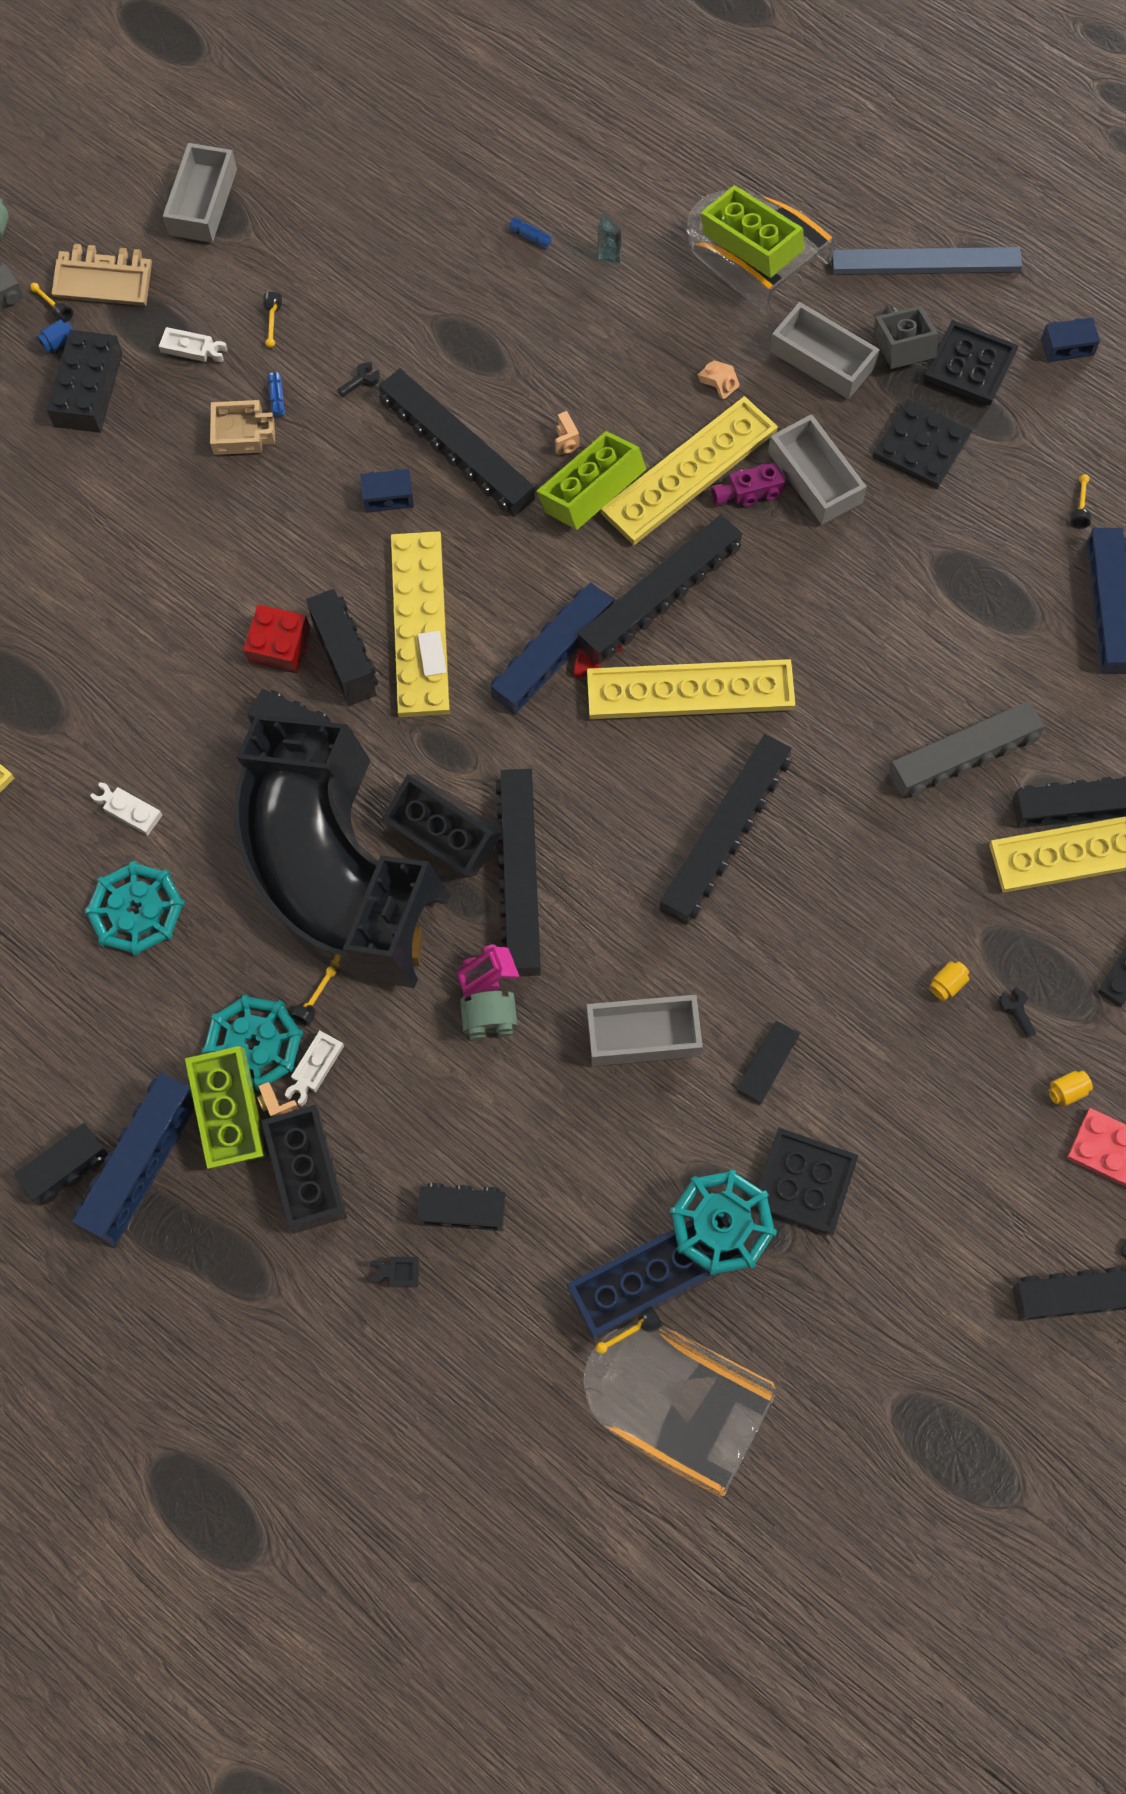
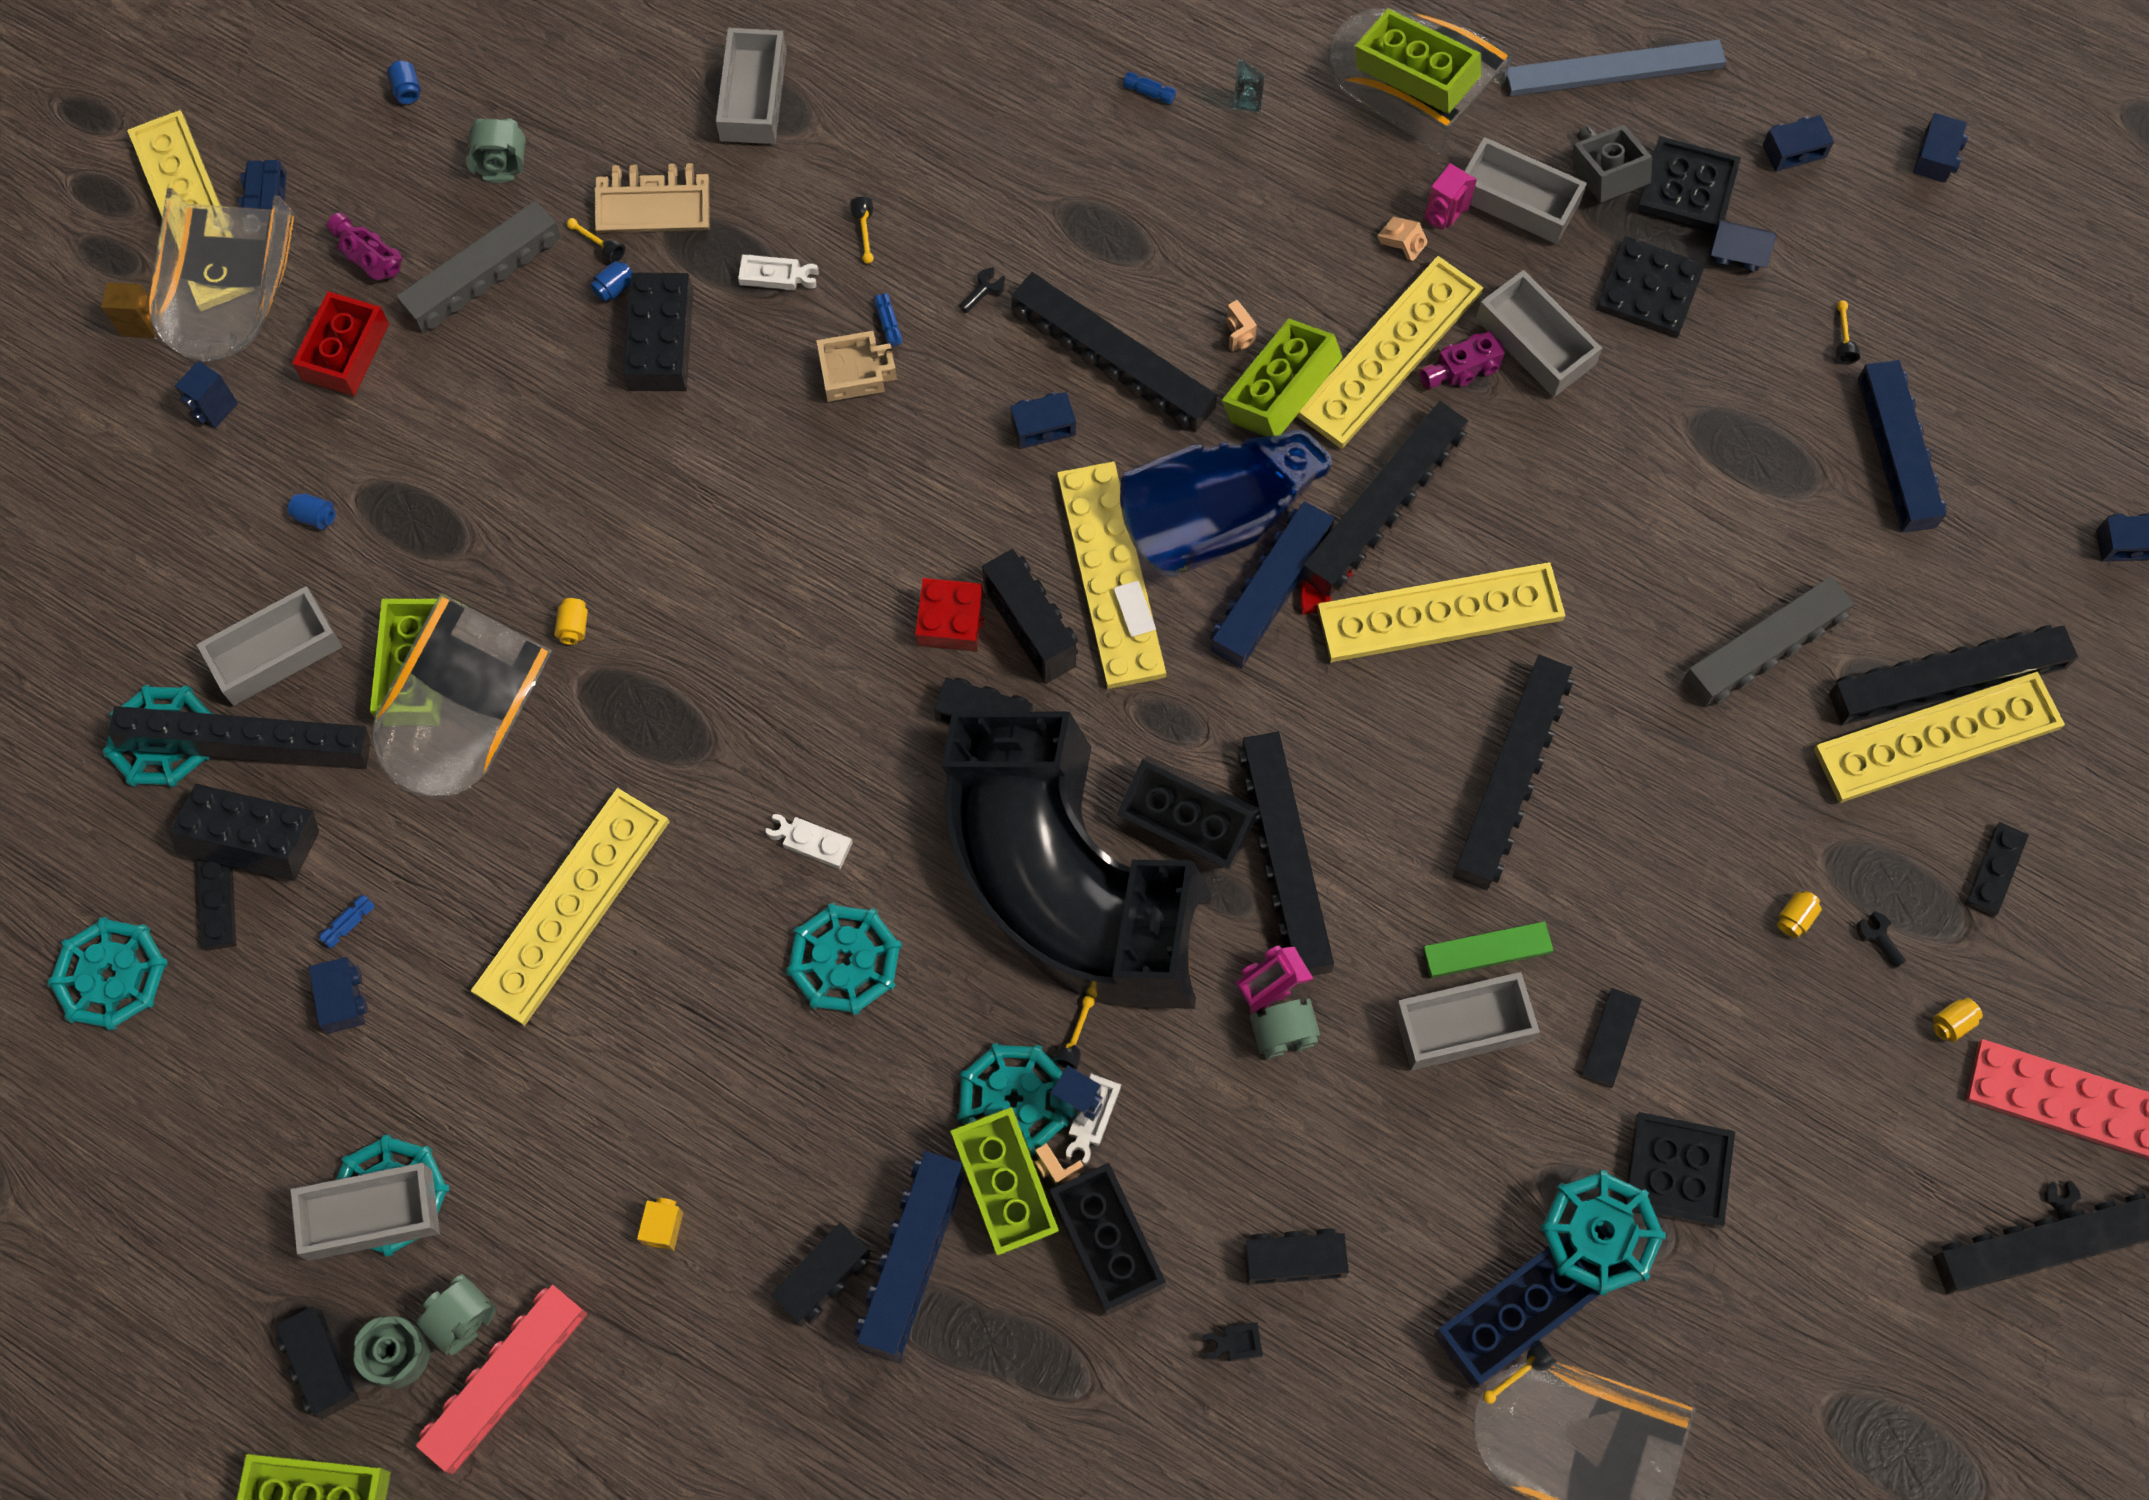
camera: 10 degrees left, 0 degrees up
(298, 1045) = (1076, 1096): none -> dark blue brick
(515, 571) = (1216, 497): none -> clear blue windscreen
(676, 974) = (1487, 950): none -> bright green tile
(762, 348) = (1449, 197): none -> dark pink window
(1005, 417) = (1742, 244): none -> dark blue brick

